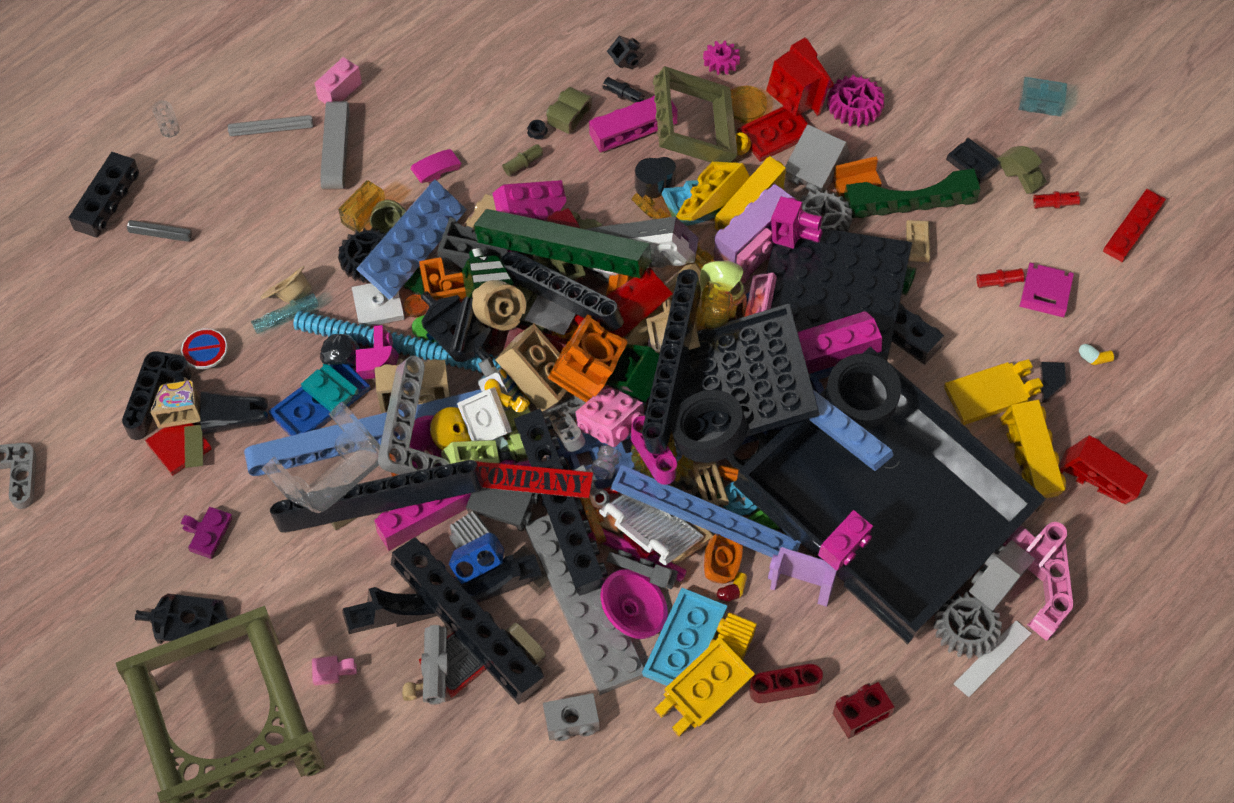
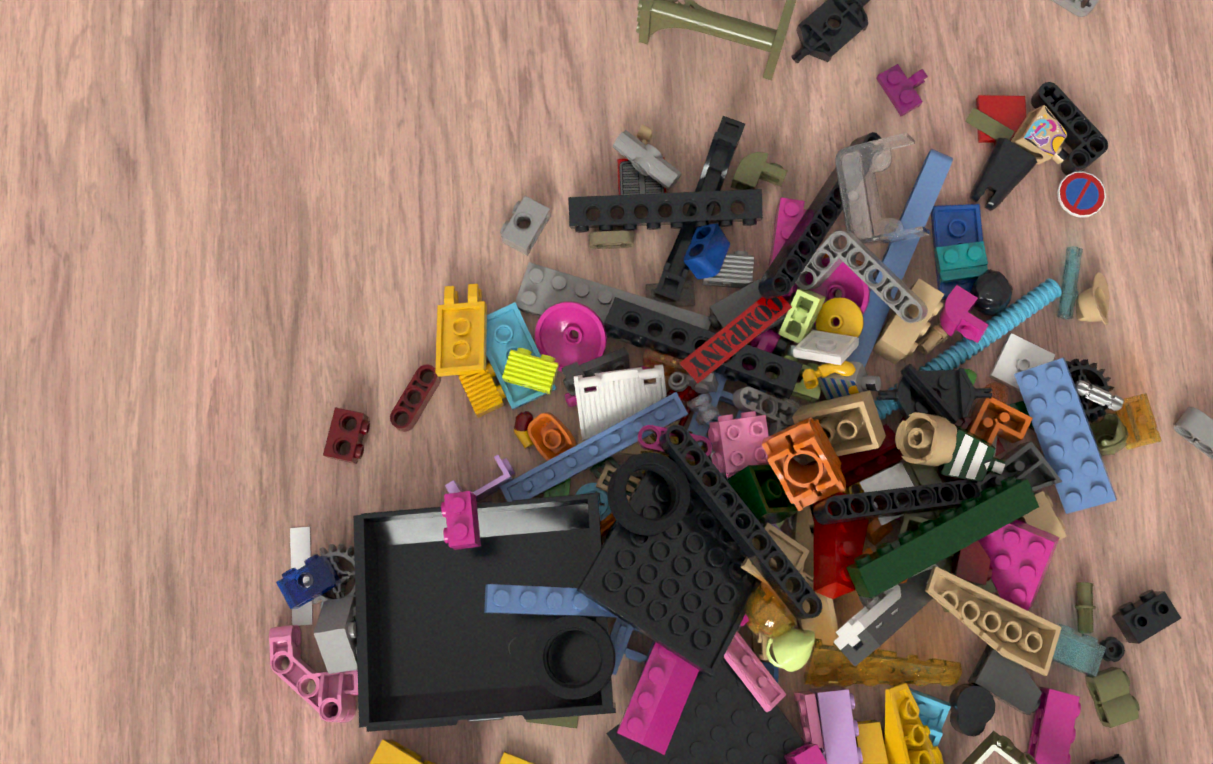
camera: 130 degrees right, 20 degrees up
(328, 669) = (709, 93): bright pink plate -> none
(365, 234) = (1099, 395): none -> light grey axle
(366, 578) = (754, 168): none -> olive brick
(435, 164) = (1139, 524): dark pink slope -> none
(497, 123) = (1146, 616): none -> black brick
(559, 148) = (1078, 652): none -> clear light blue brick
(585, 186) = (999, 623): none -> tan wedge
(615, 172) = (1006, 681): none -> dark grey slope
(687, 608) = (530, 370): none -> neon yellow brick
(1004, 623) = (323, 580): none -> clear blue brick

